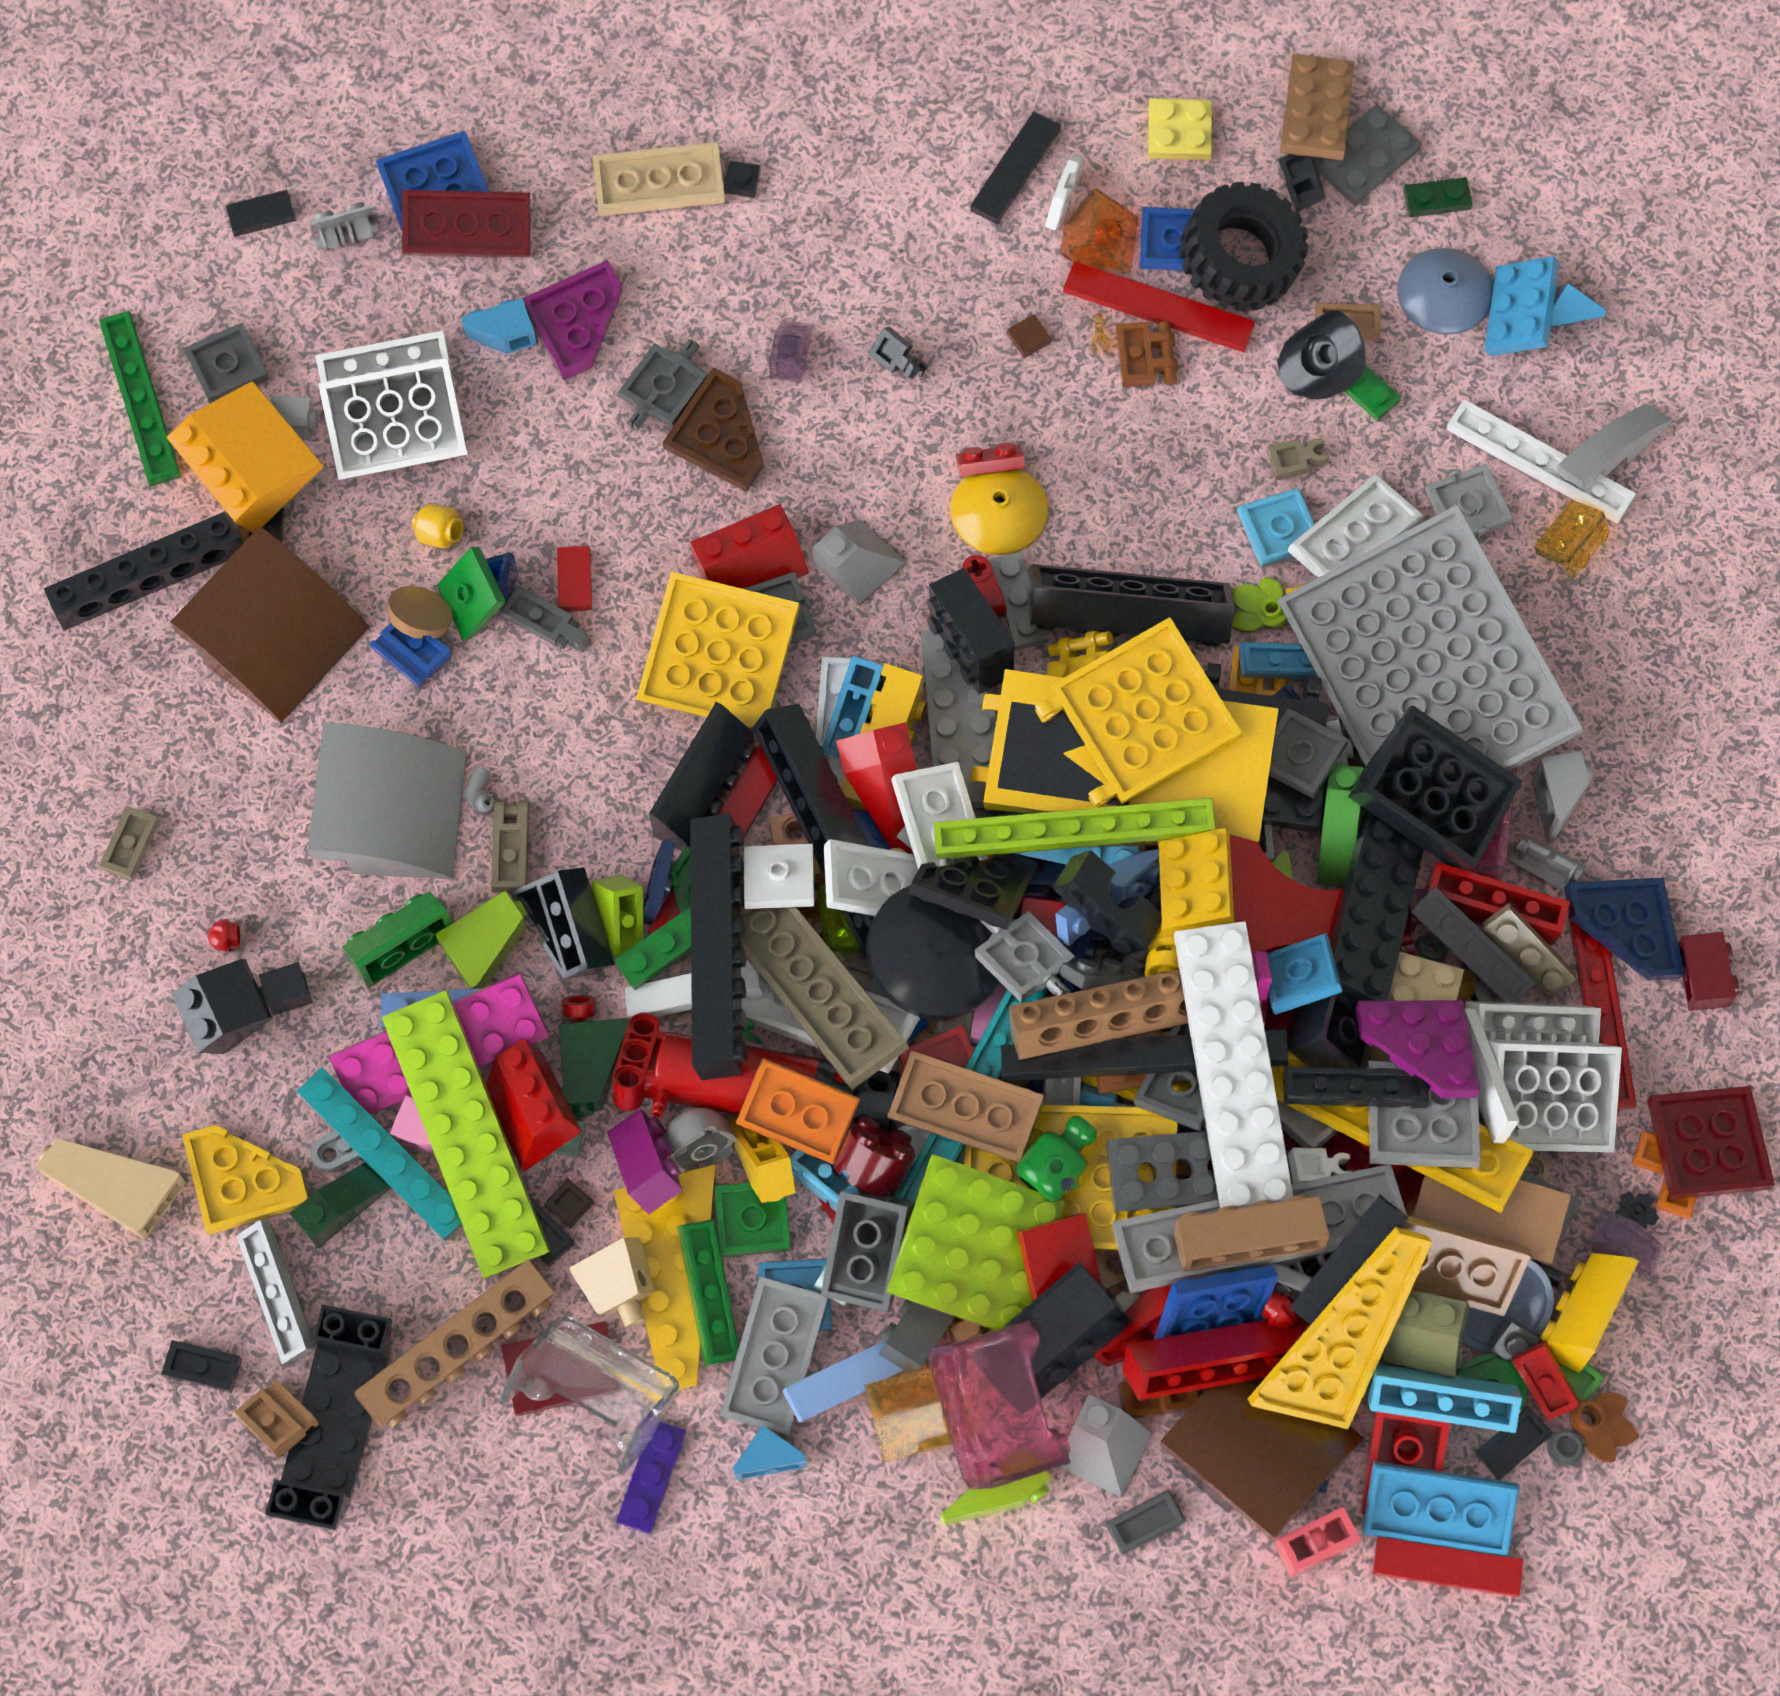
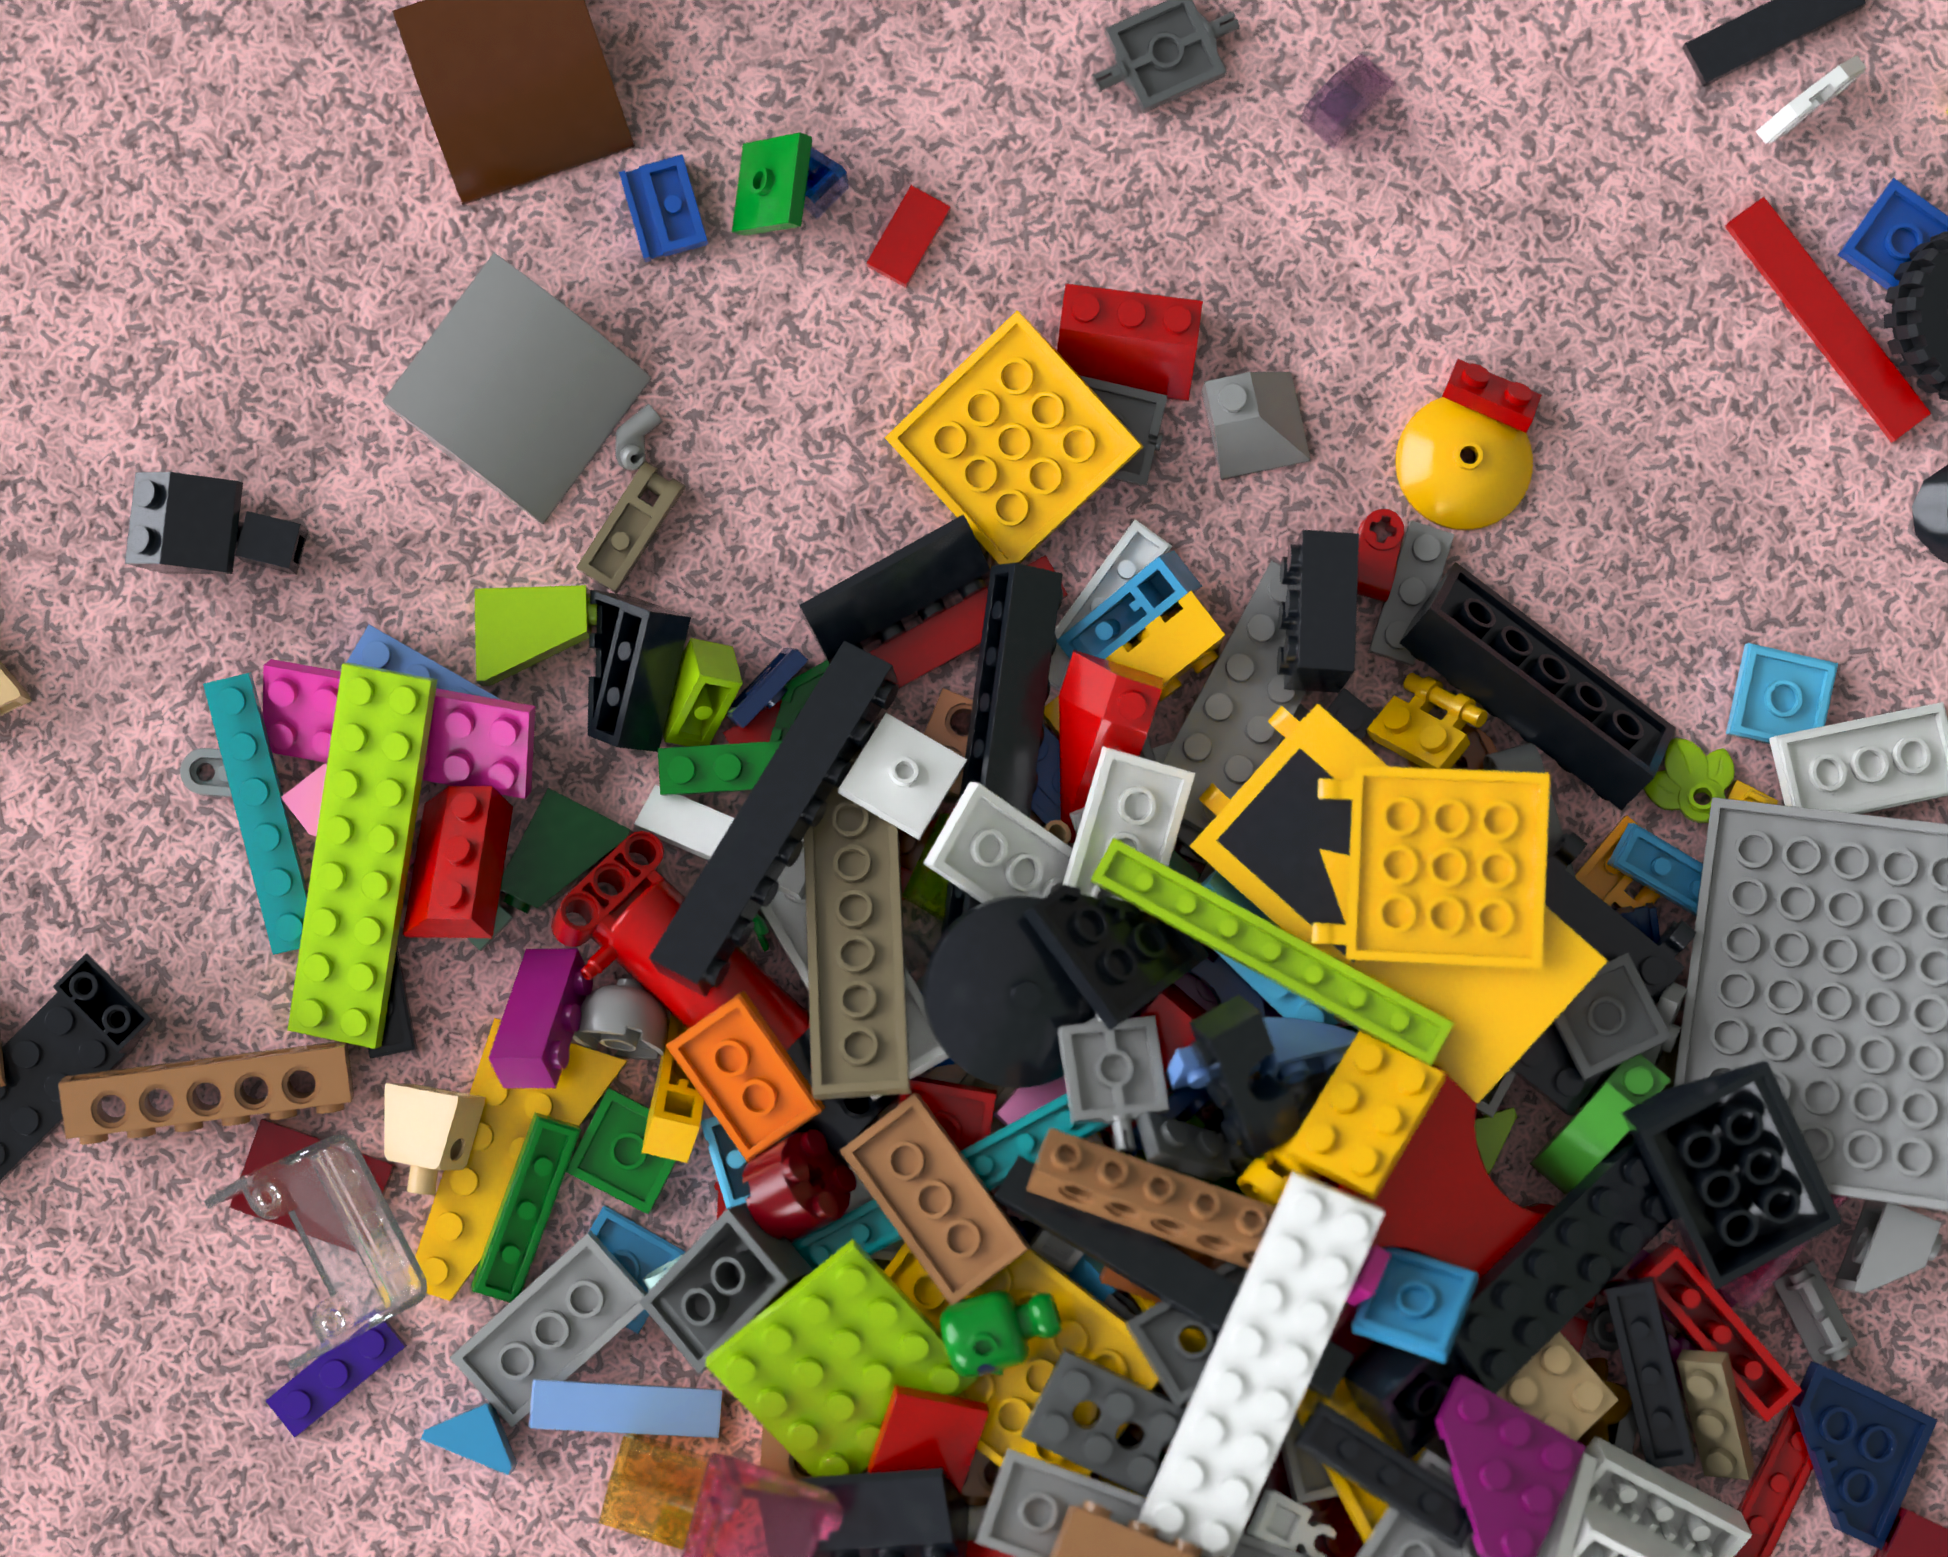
camera: 30 degrees right, 15 degrees up
(129, 843) = (201, 249): dark tan plate -> none
(225, 935) = (243, 433): red plate -> none
(239, 1180) = (88, 739): yellow plate -> none
(275, 1292) = (51, 897): plate -> none
(338, 1203) = (177, 839): dark green slope -> none
(397, 938) = (430, 561): green slope -> none
(419, 612) = (698, 169): medium nougat tile -> none
(437, 526) = (787, 70): yellow head -> none
(544, 620) = (839, 268): dark grey hinge -> none
(569, 1203) = (437, 999): dark brown tile -> none
(579, 1007) = (587, 777): red tile -> none
(718, 432) = (1193, 154): reddish brown plate -> none
(892, 353) = (1465, 182): plate -> none
(915, 1334) = (710, 1415): dark grey brick -> none
(1028, 336) = (1645, 260): reddish brown tile -> none
(1099, 334) = (1732, 310): clear yellow hand -> none
(1101, 234) = (1818, 183): clear orange slope -> none
(1136, 357) = (1757, 367): dark orange plate -> none
(1292, 459) = (1855, 620): dark tan plate -> none

